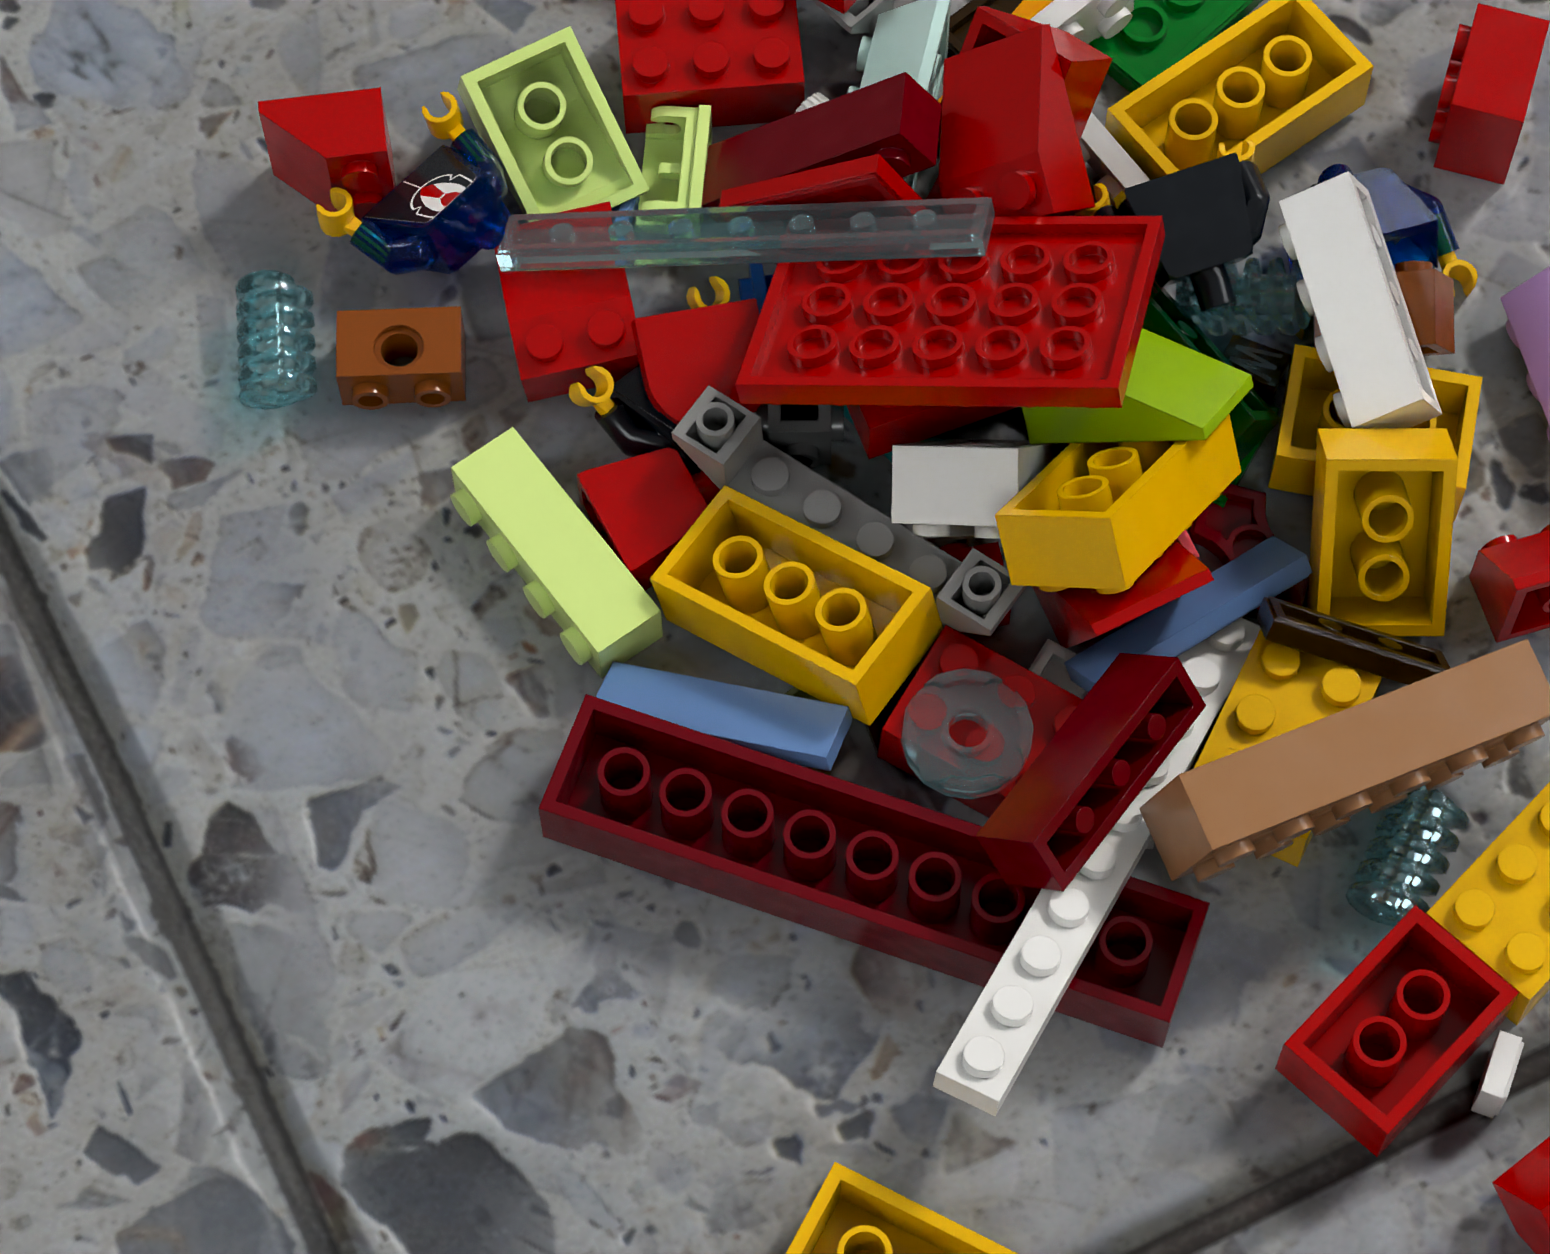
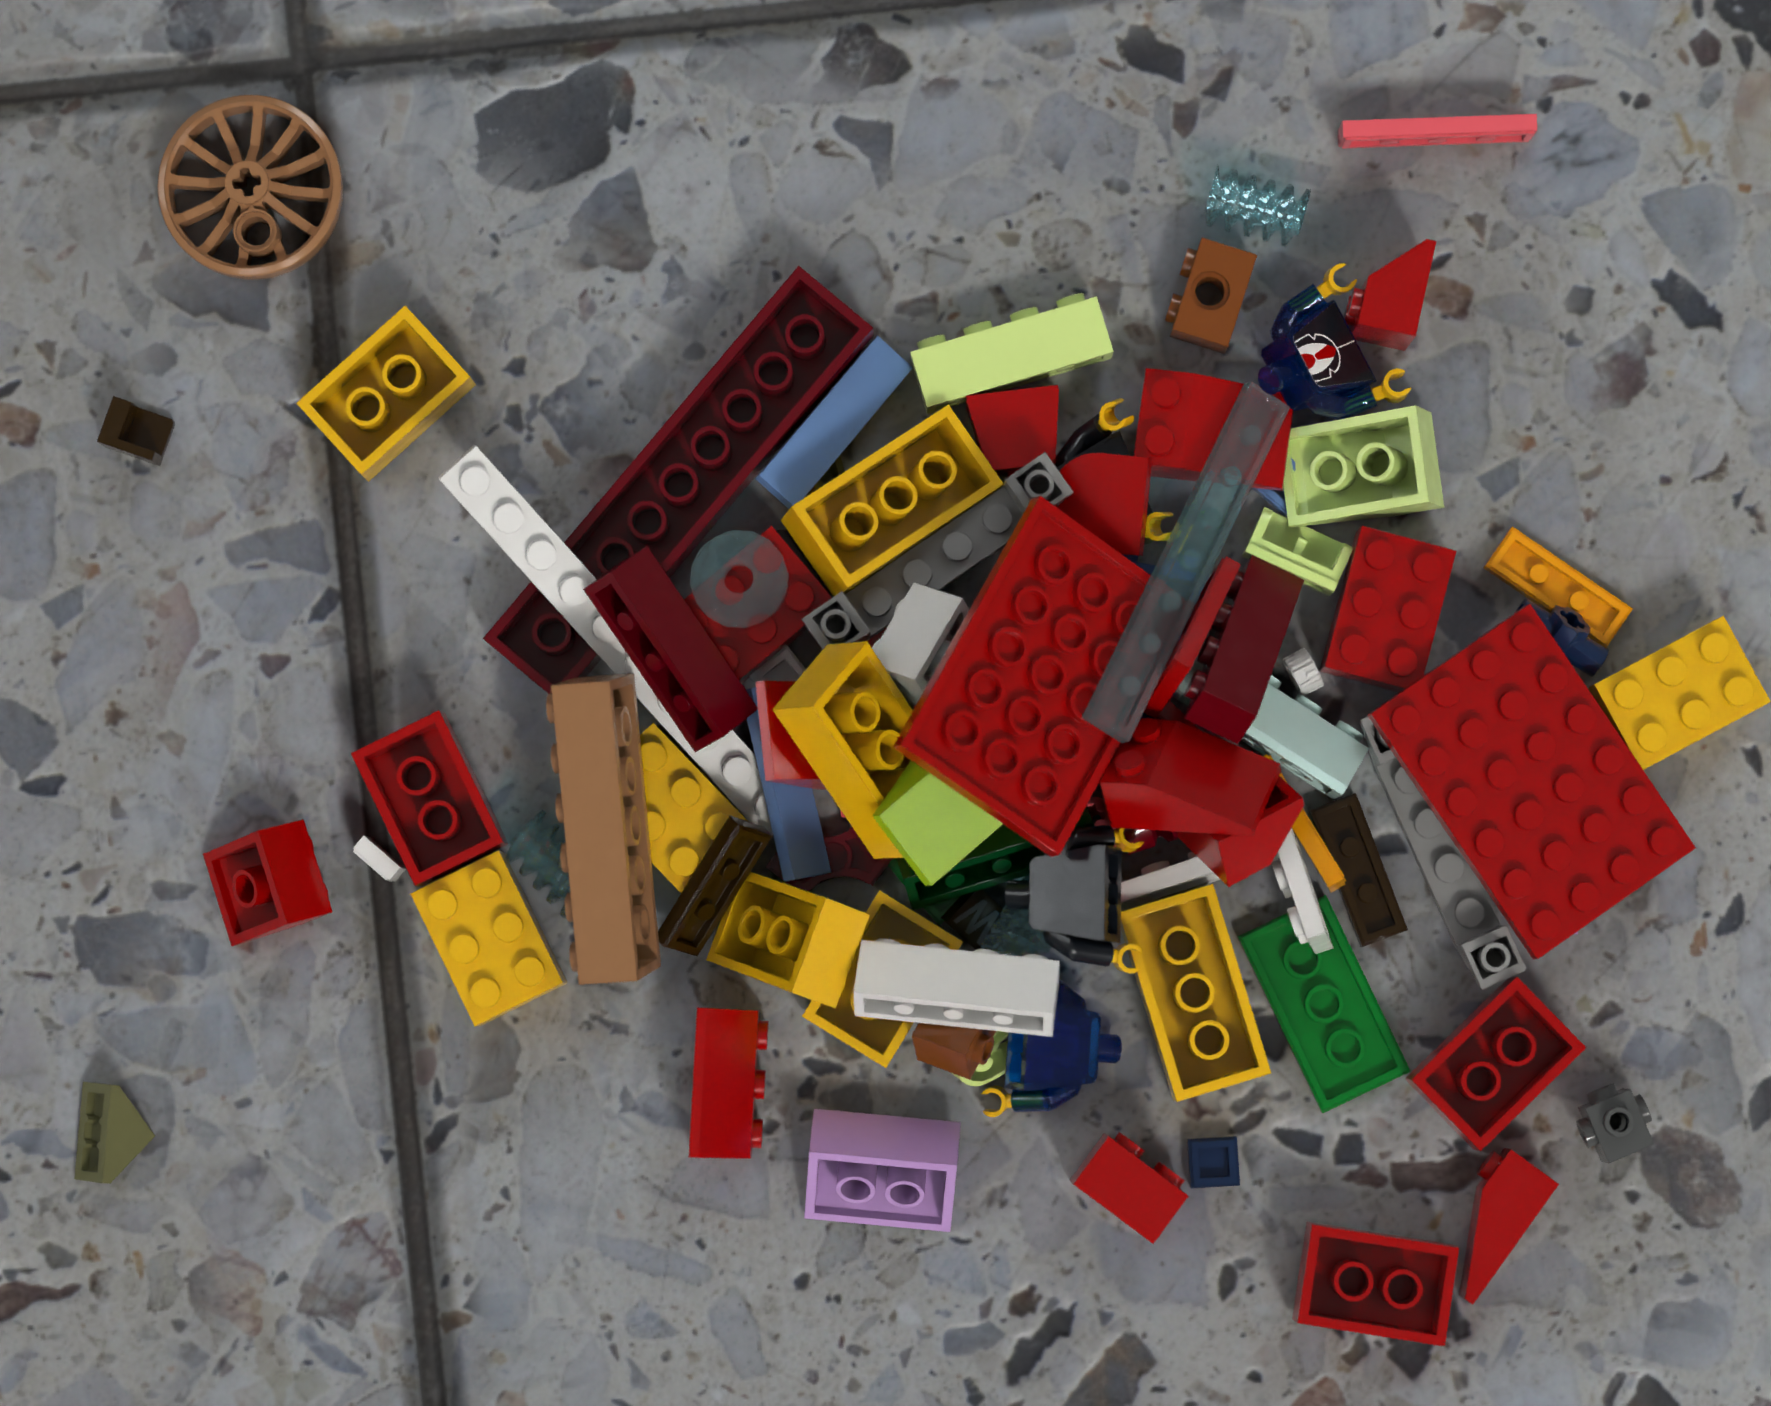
camera: 115 degrees right, 20 degrees up
(117, 185) = (1437, 131): none -> coral tile
(1412, 43) = (1213, 1162): none -> dark blue tile

